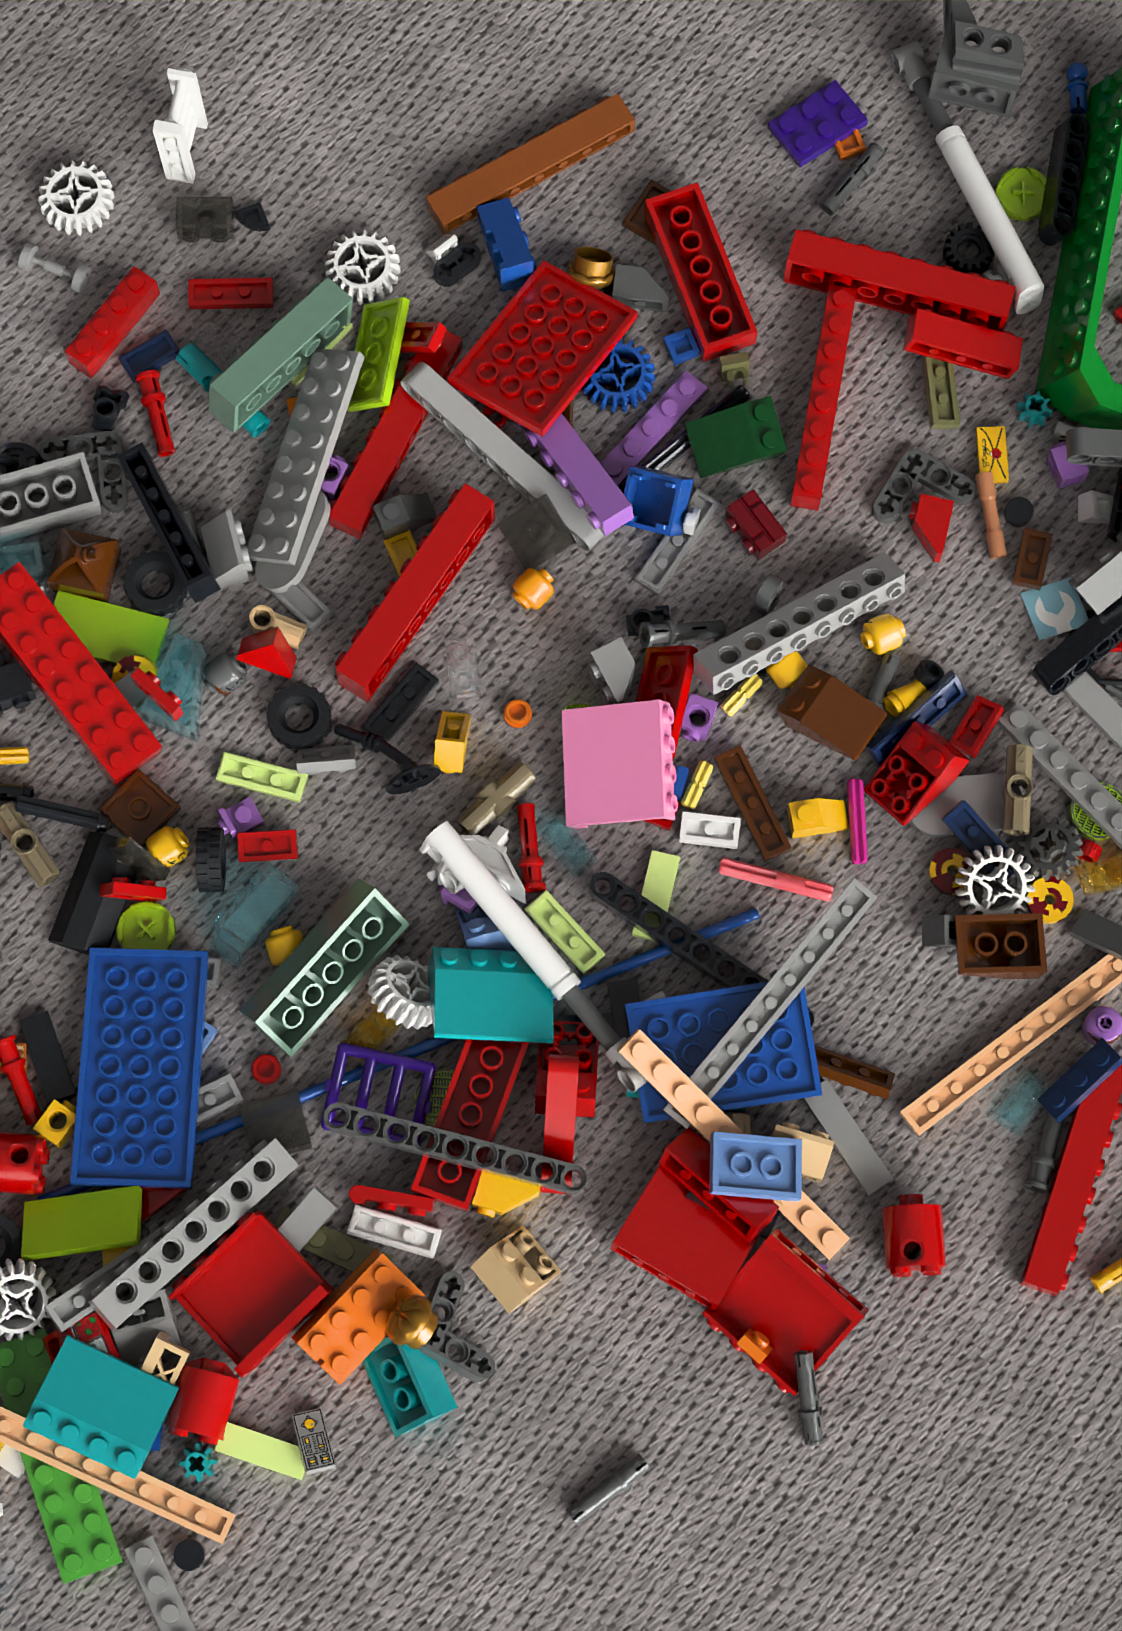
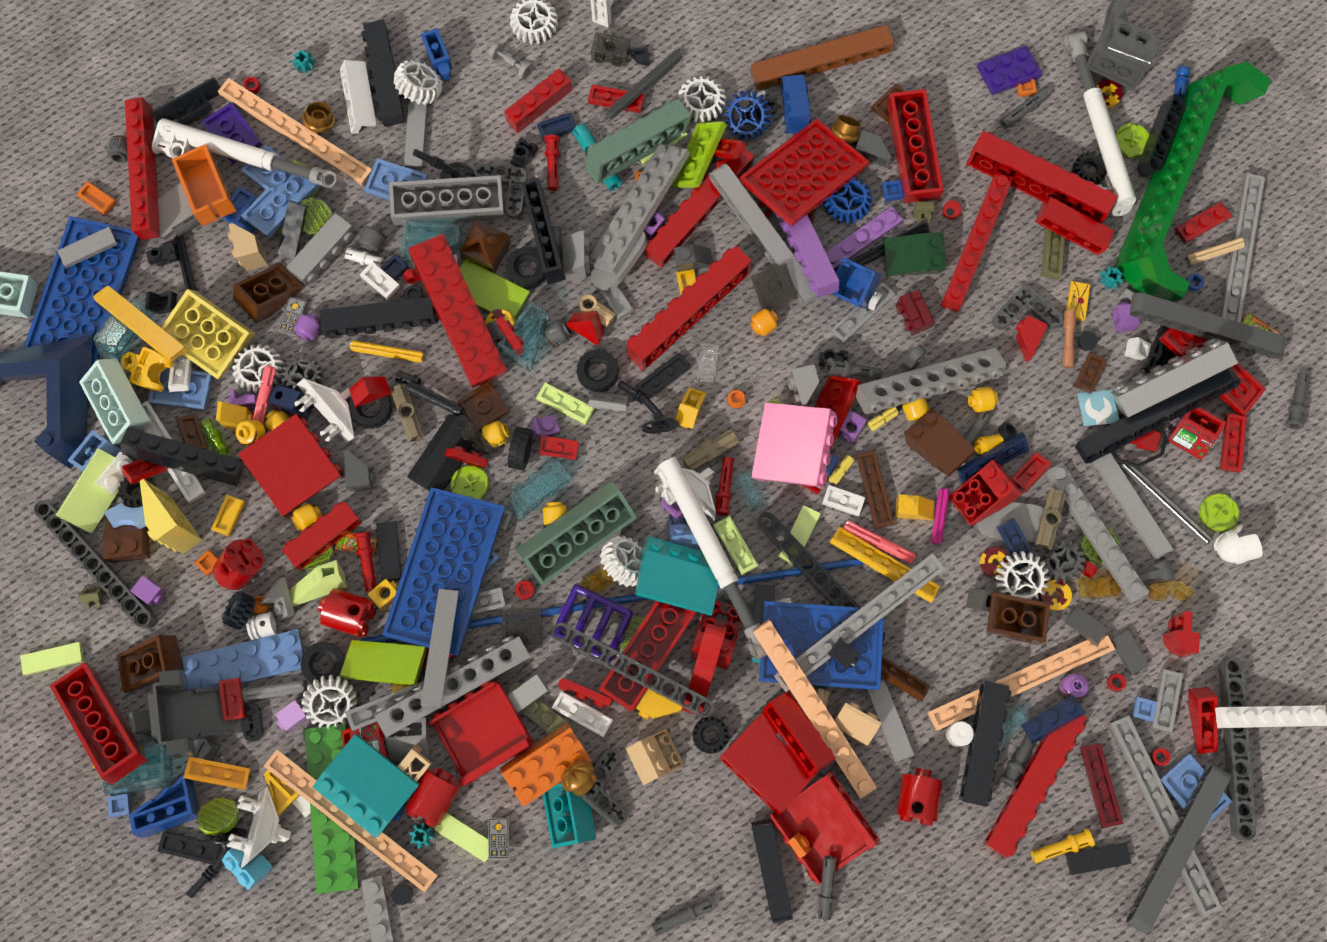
camera: 15 degrees right, 0 degrees up
(163, 1181) = (439, 648): none -> light grey tile
(268, 263) = (643, 84): none -> dark grey axle
(427, 271) = (754, 119): none -> blue gear
(593, 1200) = (722, 731): none -> black tyre
(723, 1392) = (772, 871): none -> black beam
(755, 1166) = (826, 728): medium blue plate -> none
(758, 1054) = (844, 654): none -> black bracket
(776, 356) = (951, 210): none -> red tile
(781, 907) = (879, 560): none -> yellow tile
(951, 1133) = (959, 734): none -> white piece
(980, 121) = (1113, 89): none -> piece
(990, 1137) = (983, 748): none -> black brick

